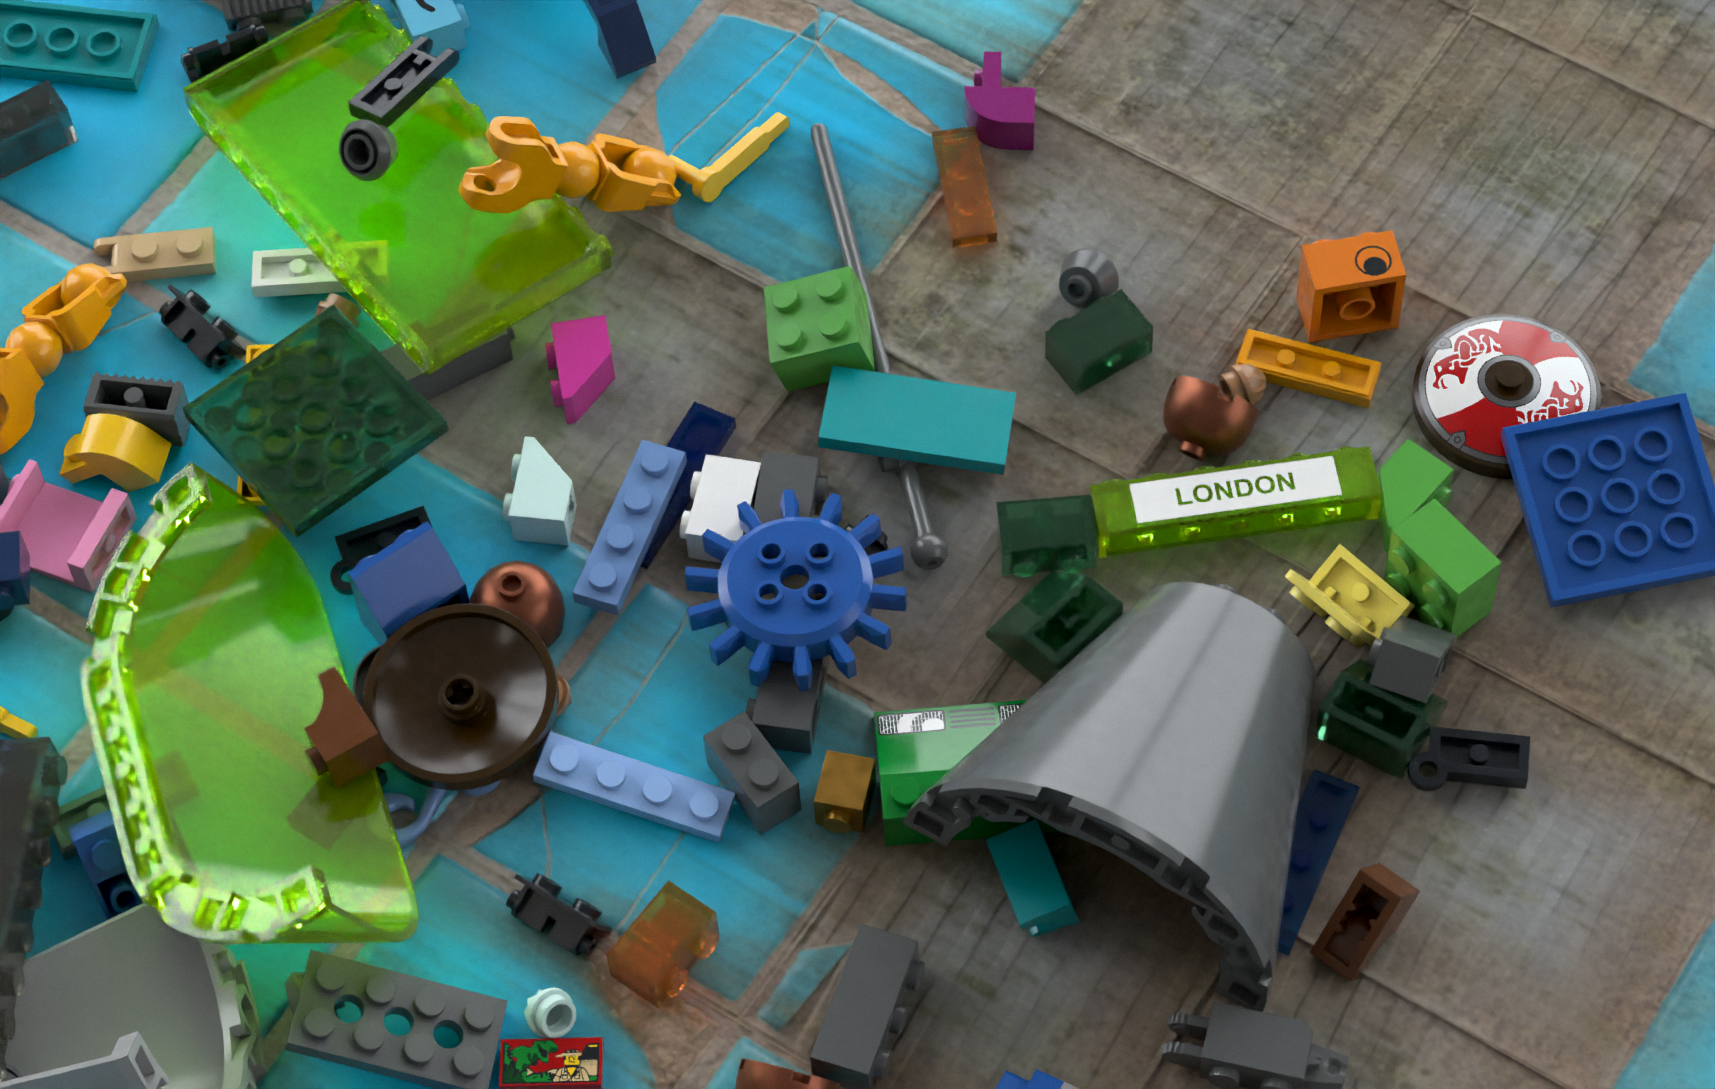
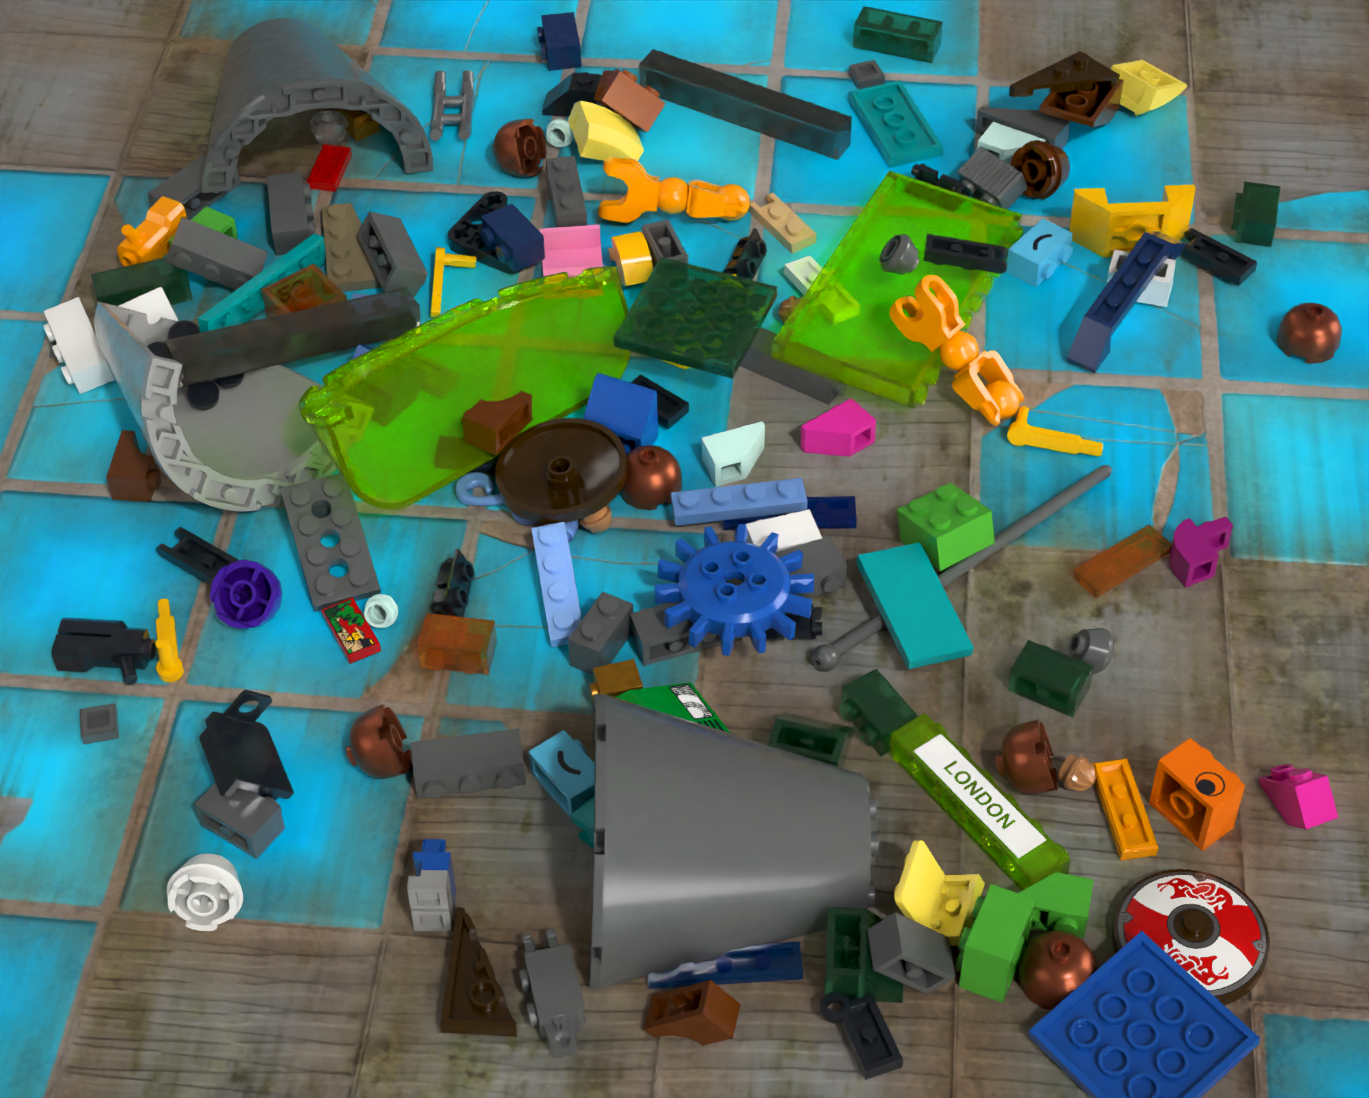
camera: 60 degrees right, 10 degrees down
(948, 902) = (564, 771): none -> medium azure brick
(1391, 198) = (1300, 795): none -> dark pink slope
(1500, 526) = (1054, 967): none -> copper cylinder

